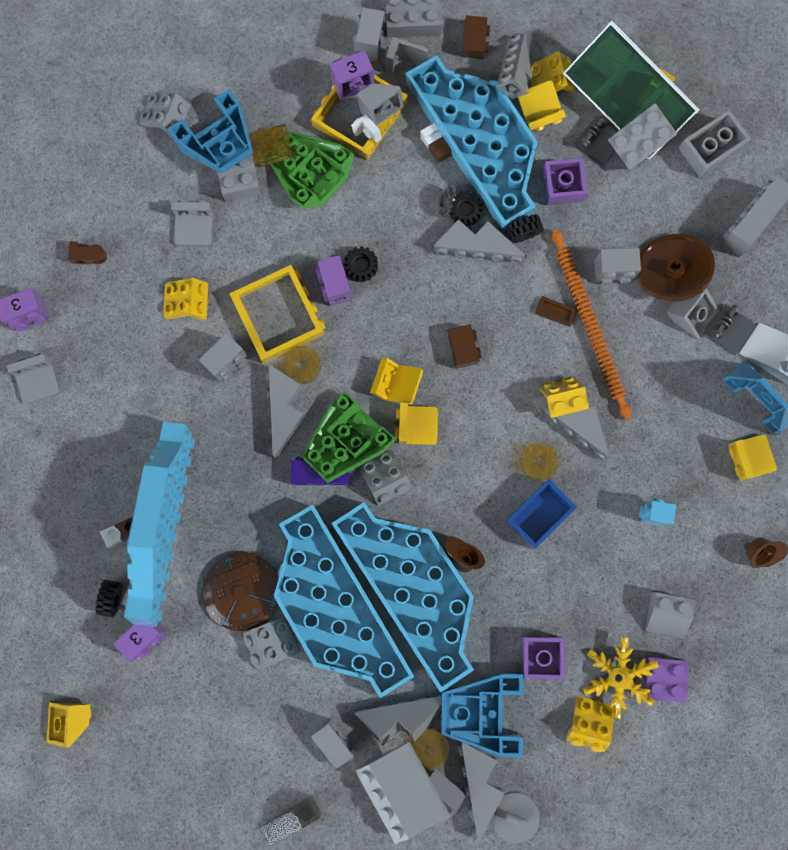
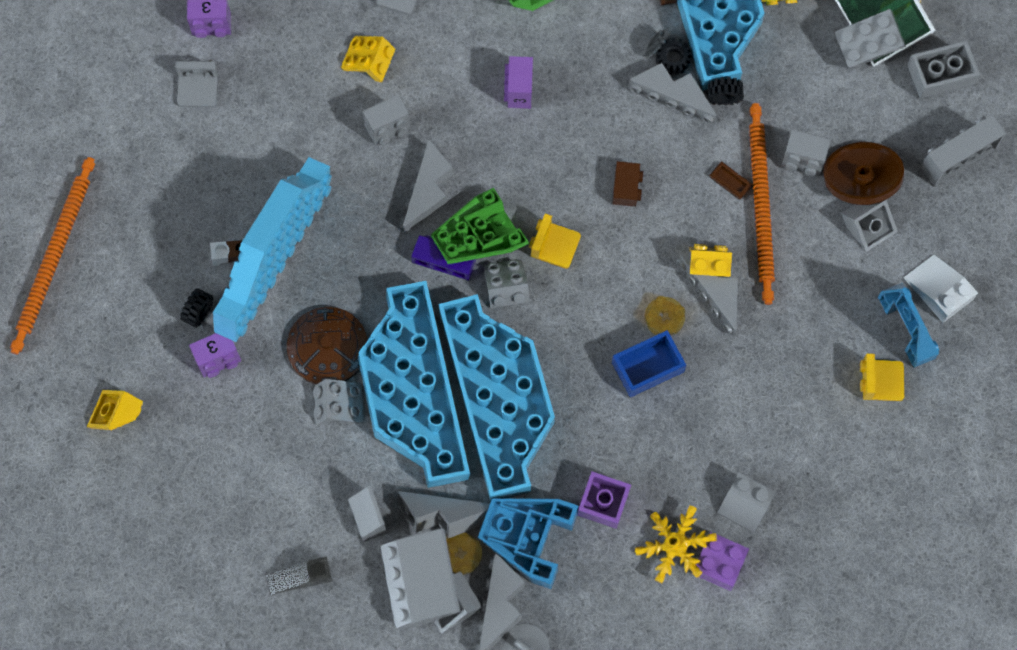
camera: 15 degrees right, 10 degrees down
(299, 354) = (459, 142): clear yellow plate -> none
(310, 307) = (454, 130): yellow window -> none
(357, 254) = (557, 67): black tyre -> none
(396, 382) = (547, 195): yellow bracket -> none
(463, 555) = (557, 379): reddish brown piece -> none
(564, 181) = (780, 59): medium lavender brick -> none
(591, 724) = (630, 583): yellow bracket -> none
(595, 141) = (823, 32): dark grey hinge -> none
(658, 513) = (766, 398): medium azure brick -> none
(730, 329) = (902, 251): dark grey hinge -> none
(765, 553) = (865, 474): reddish brown piece -> none

